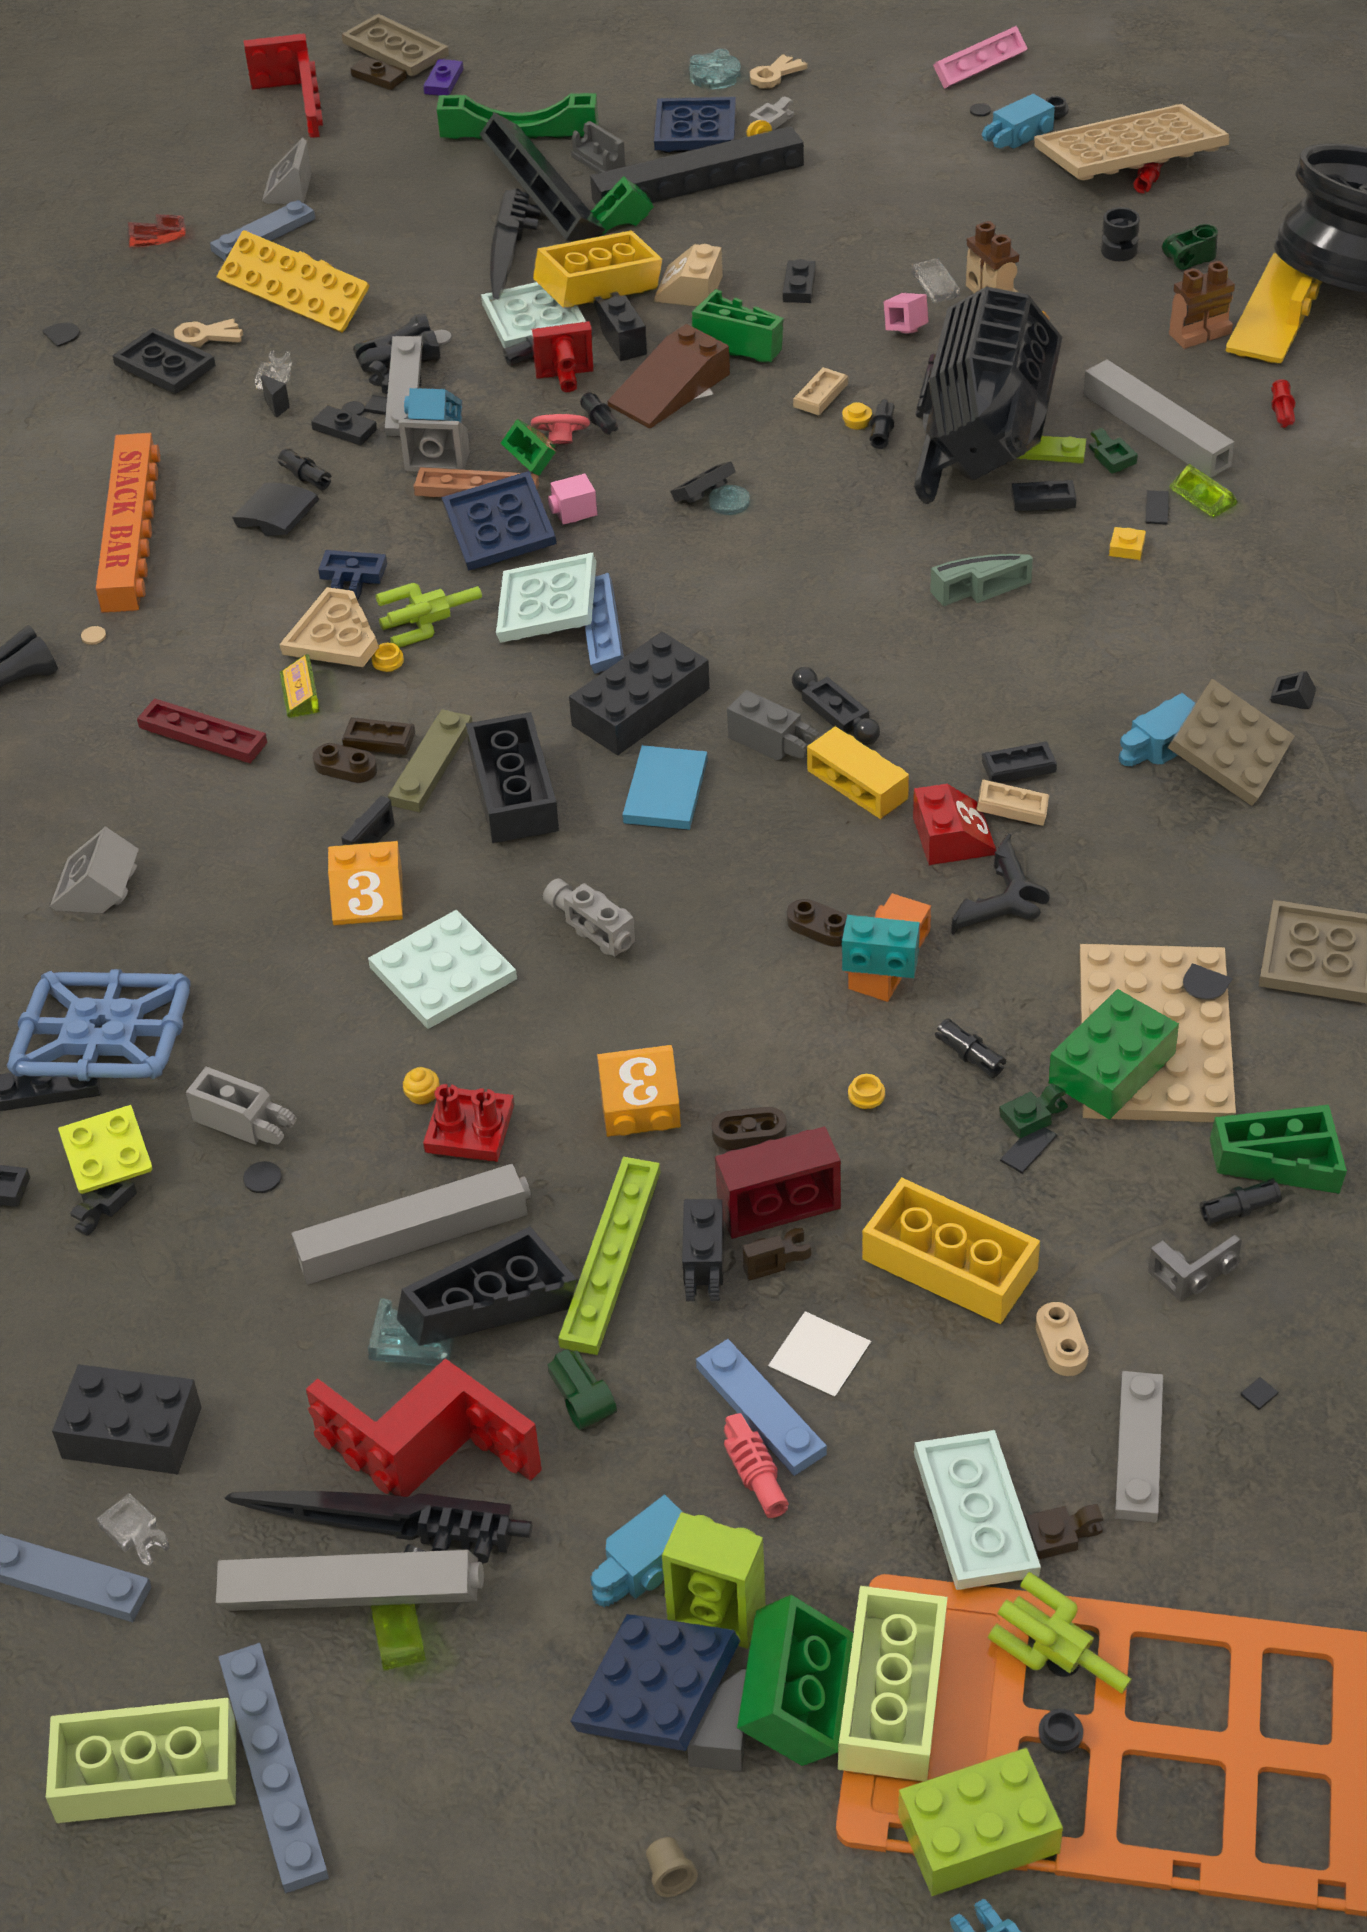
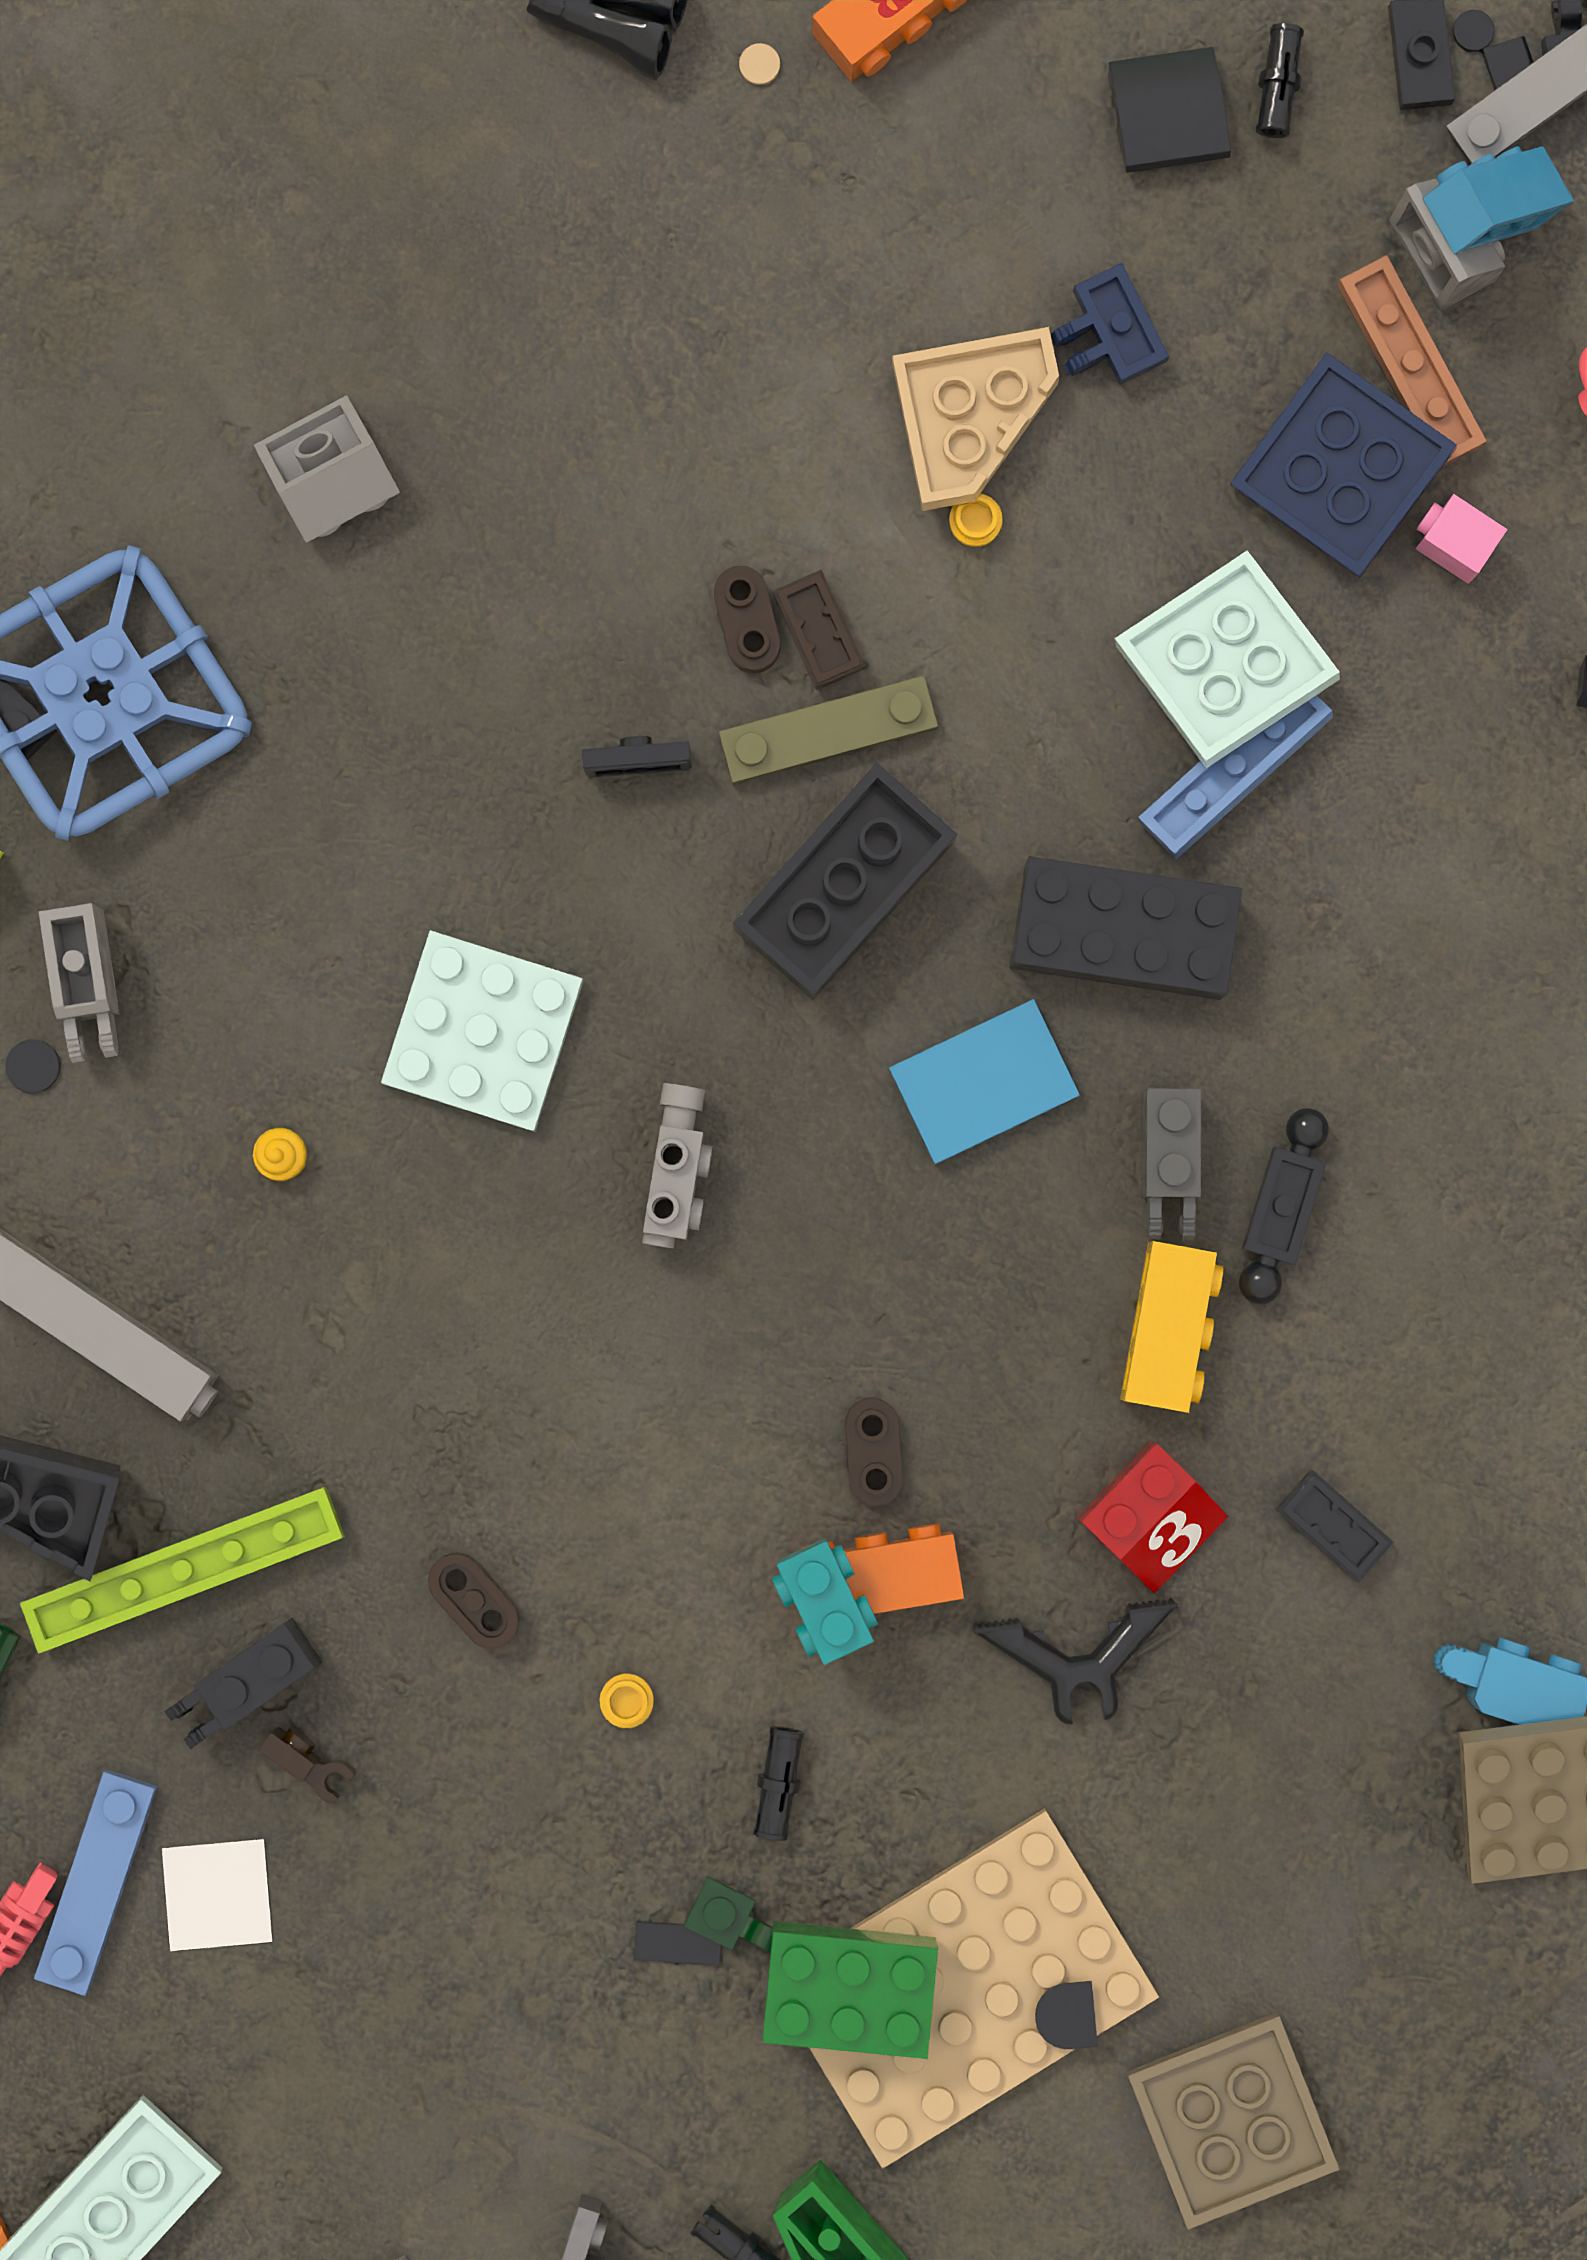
camera: 50 degrees right, 40 degrees up
(202, 730) = (670, 383): dark red plate -> none
(299, 688) = (840, 445): slope -> none
(365, 883) = (542, 832): light orange slope -> none
(422, 610) = (1087, 503): lime plant -> none
(468, 1123) = (258, 1260): red plate -> none
(529, 446) = (1526, 390): green arch -> none
(639, 1090) = (418, 1446): light orange slope -> none
(778, 1182) = (390, 1708): dark red brick -> none
(950, 1250) = (430, 1972): yellow brick -> none
(1012, 802) = (1248, 1566): tan plate -> none
(1059, 1335) = (410, 2160): tan plate -> none

